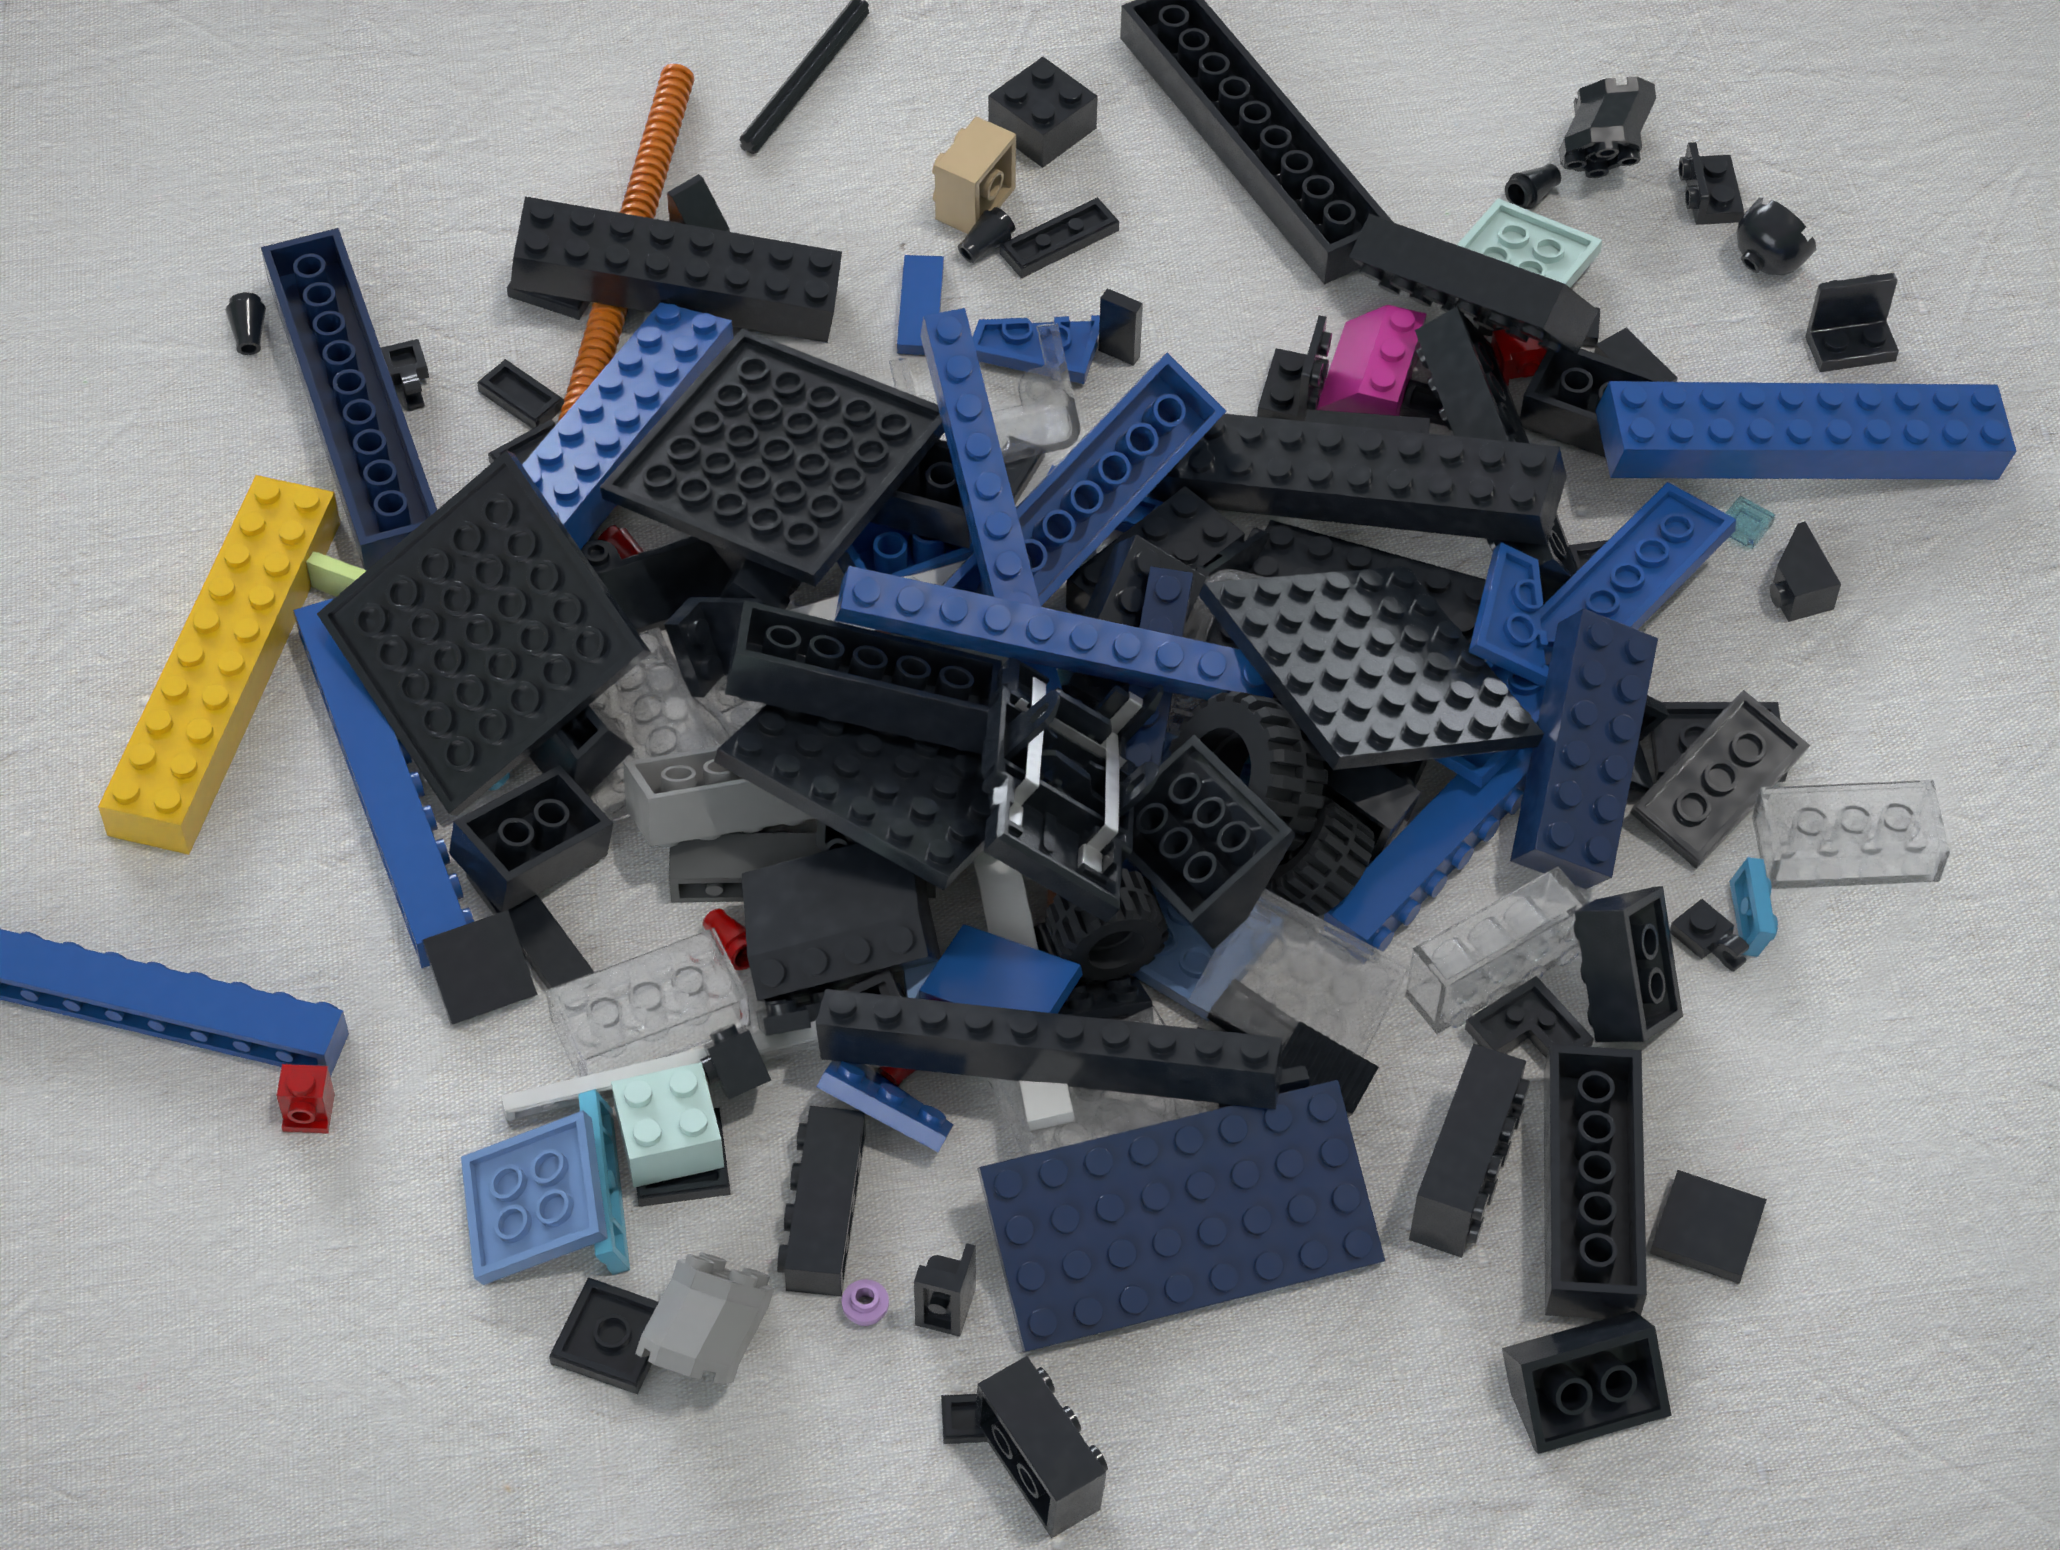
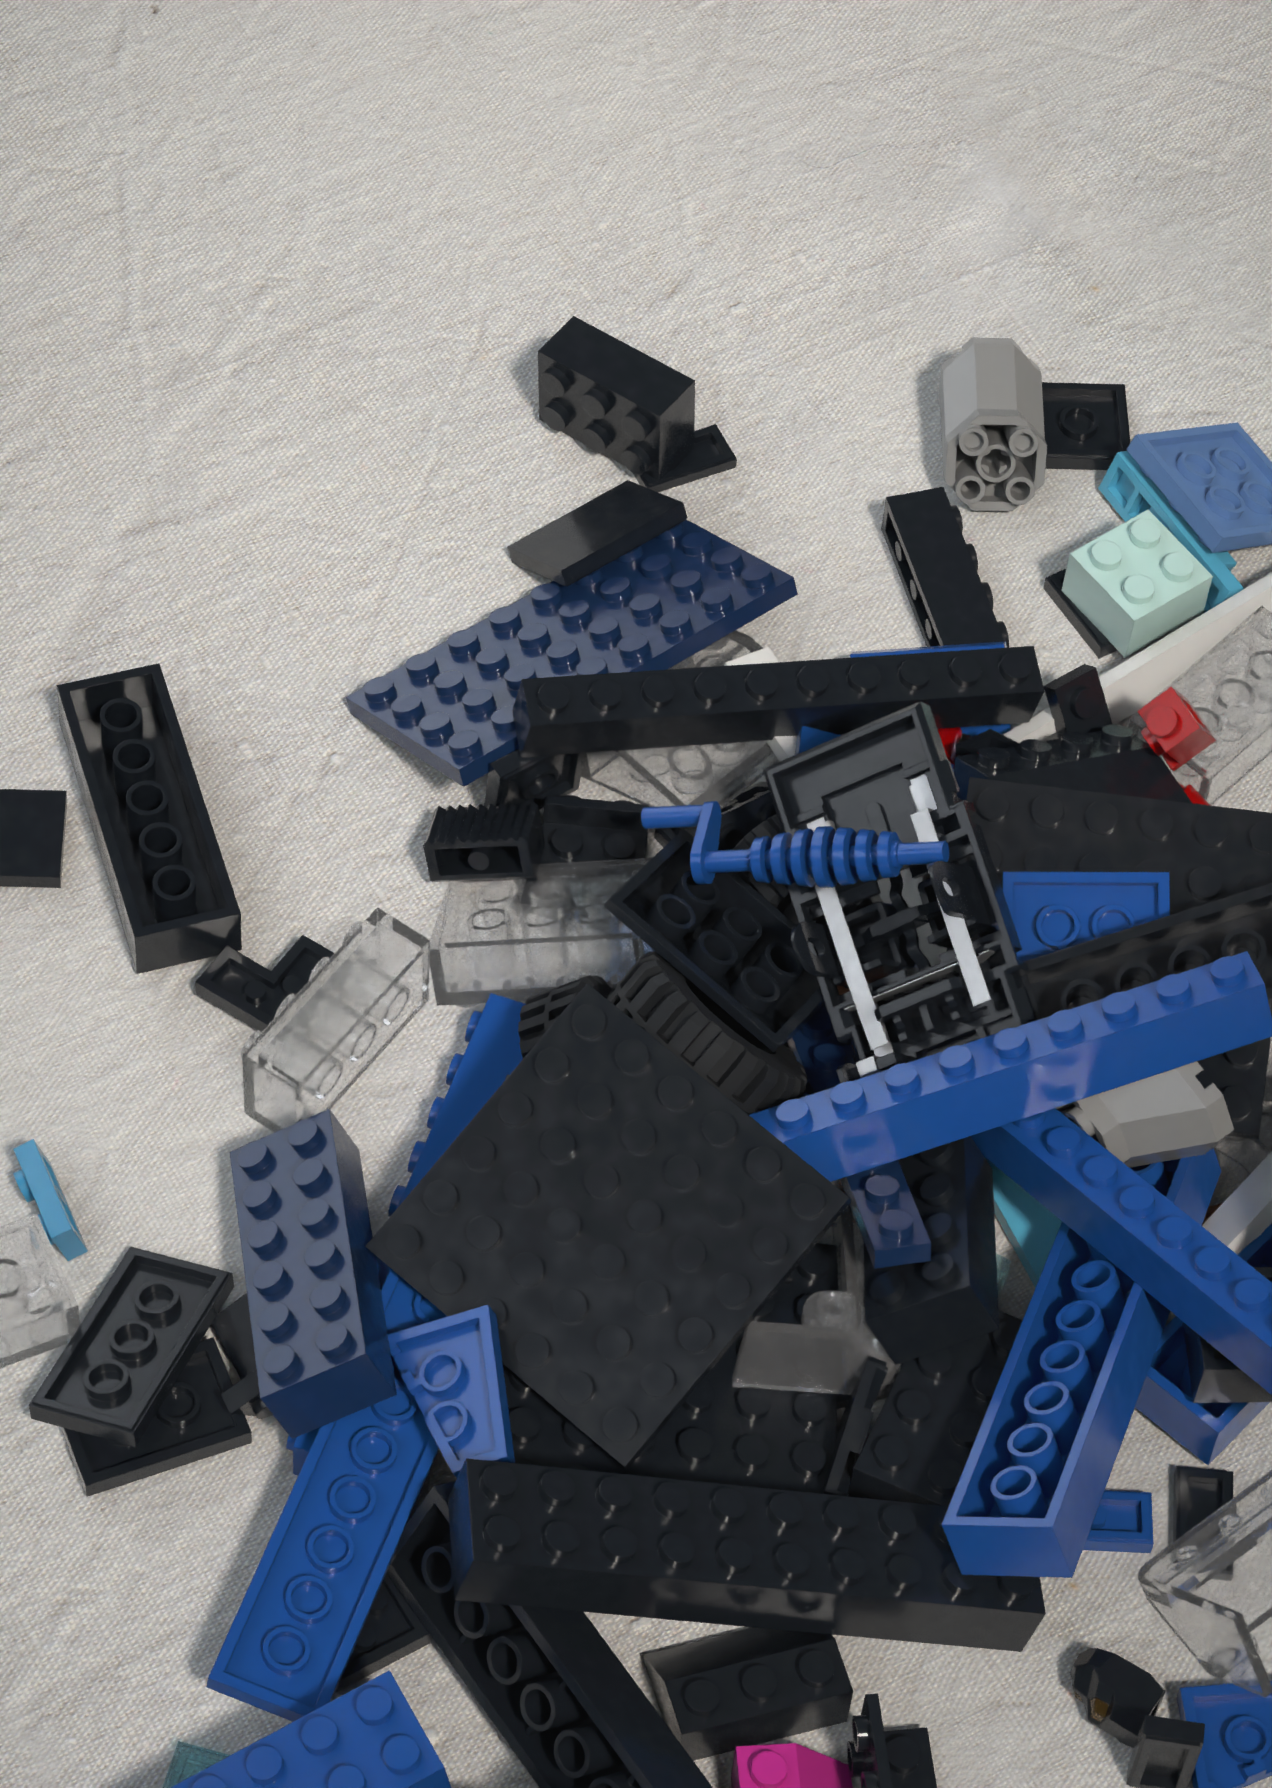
camera: 155 degrees right, 0 degrees up
(730, 942) = (1174, 728): none -> red brick
(734, 1061) = (1103, 641): black brick -> none
(865, 1313) = (853, 515): lavender plate -> none
(926, 759) = (1077, 907): none -> blue wing
(945, 1292) = (776, 505): black panel -> none
(1108, 1336) = (597, 533): none -> black tile
(1117, 375) = (1115, 1693): none -> black rock
(1138, 824) = (806, 857): none -> blue piece
(1470, 1151) = (290, 798): black brick -> none
(1587, 1381) = (102, 634): black slope -> none
(1628, 965) = (175, 1030): black slope -> none
(1708, 932) = (97, 1170): black plate -> none
(1804, 578) = (97, 1695): black slope -> none

